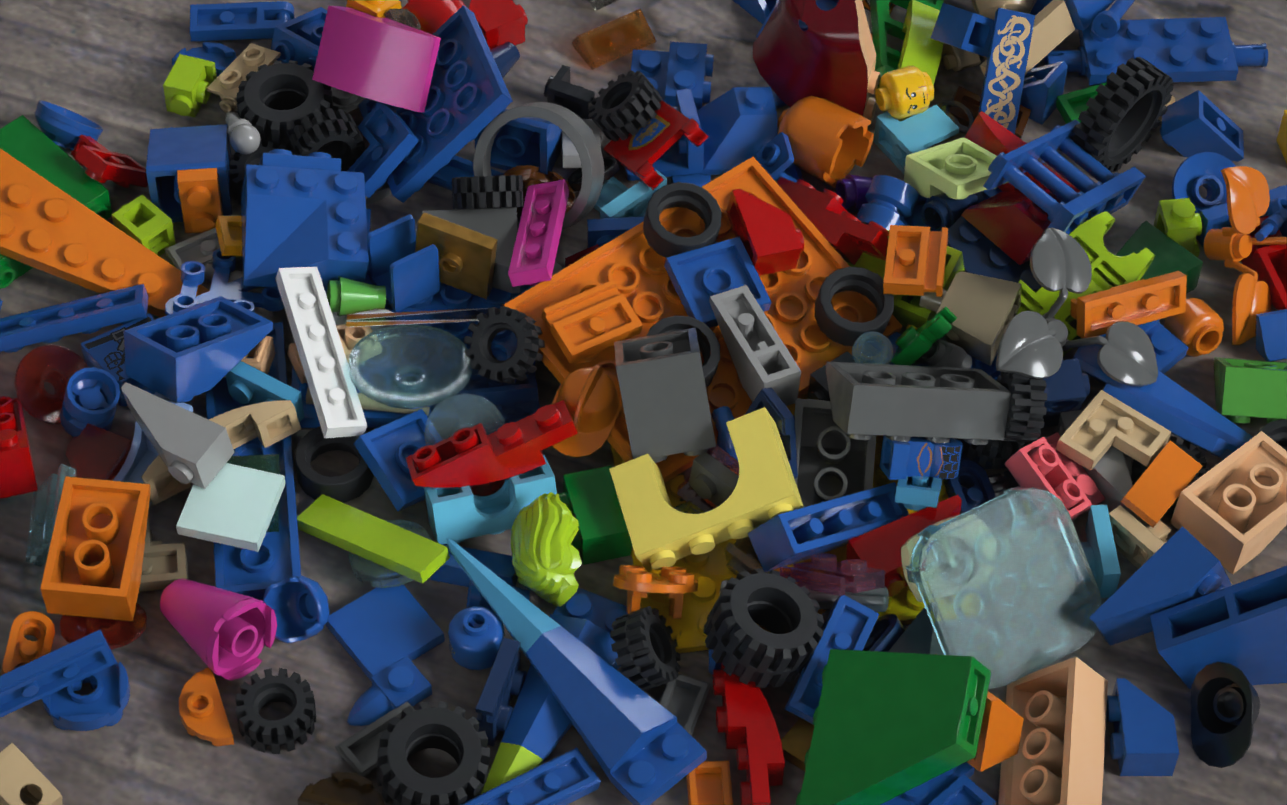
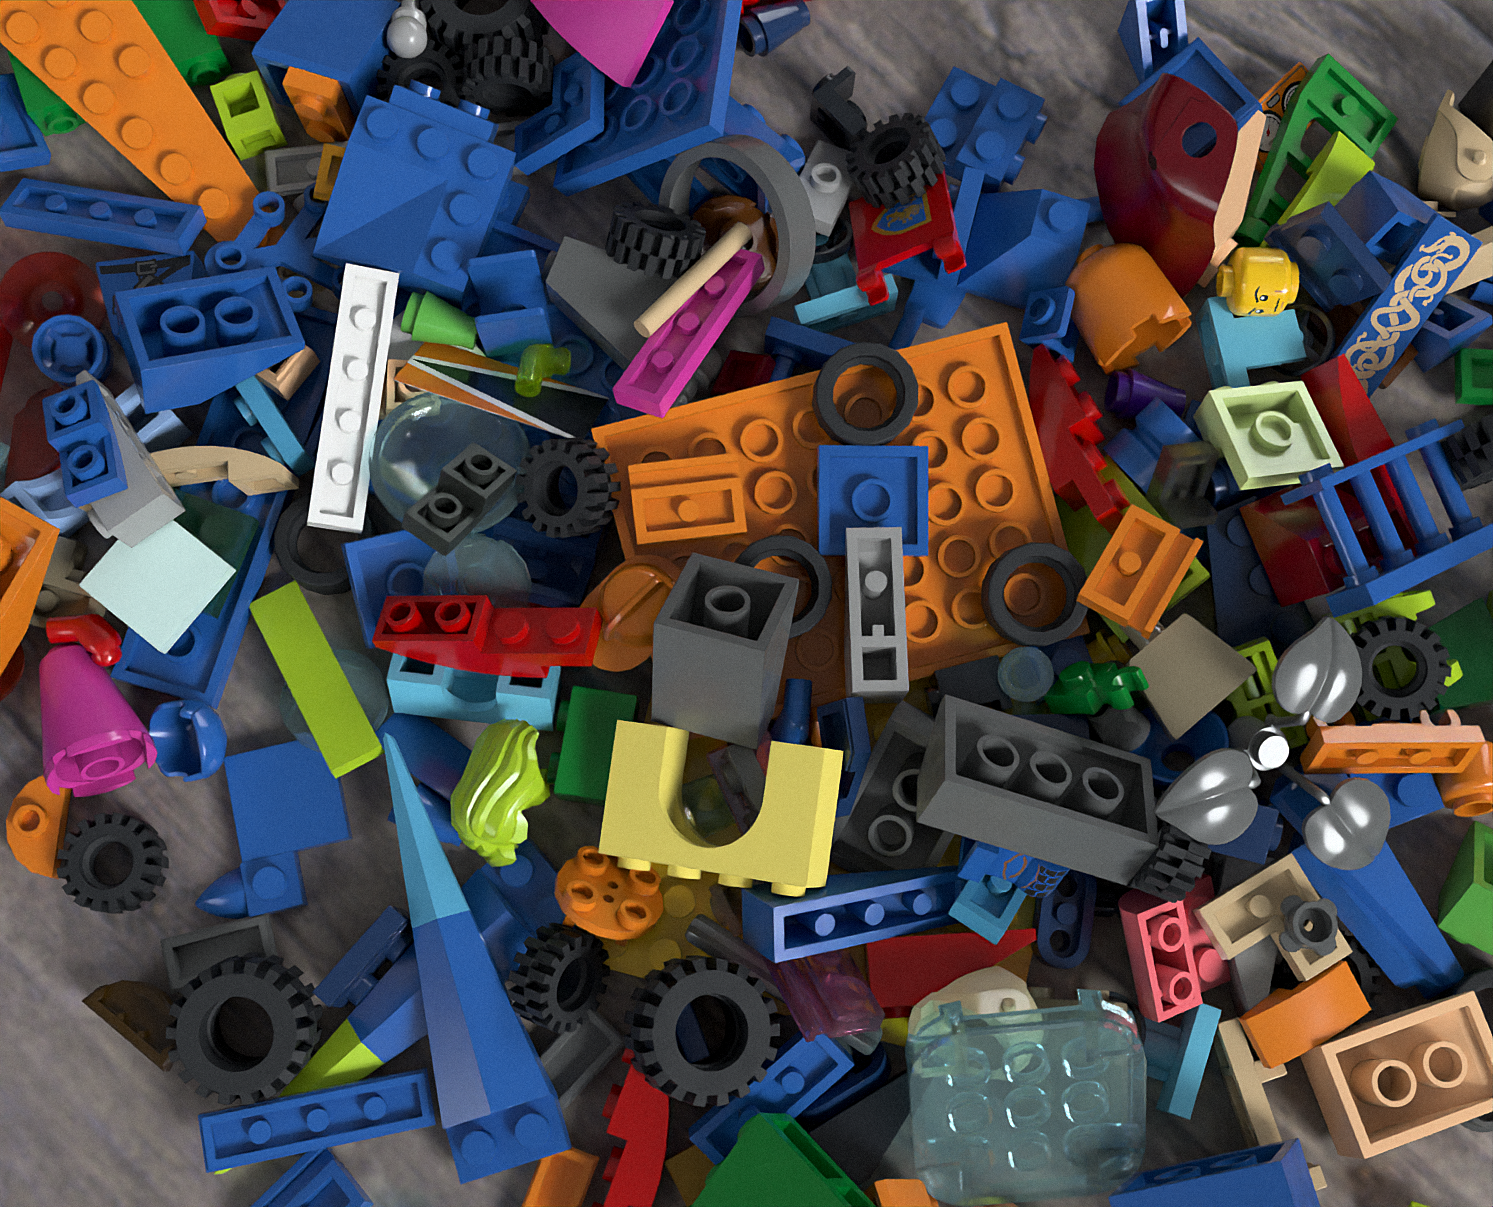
camera: 25 degrees right, 25 degrees up
(153, 417) = (86, 443): none -> blue slope
(188, 564) = (91, 631): none -> red arm
(432, 373) = (460, 499): none -> pearl dark grey slope
(441, 297) = (540, 362): none -> clear neon green arm
(463, 254) = (573, 320): pearl gold plate -> none
(475, 637) = (358, 862): blue head -> none
(526, 204) = (692, 279): none -> tan bar
(614, 39) = (939, 40): clear orange slope -> none
(765, 233) = (964, 452): red slope -> none
(916, 207) = (1181, 483): none -> clear smoke bracket
(948, 61) = (1329, 257): none -> dark blue plate
(1122, 239) = (1429, 674): none -> black tyre
(1133, 419) = (1324, 930): none -> dark grey plate

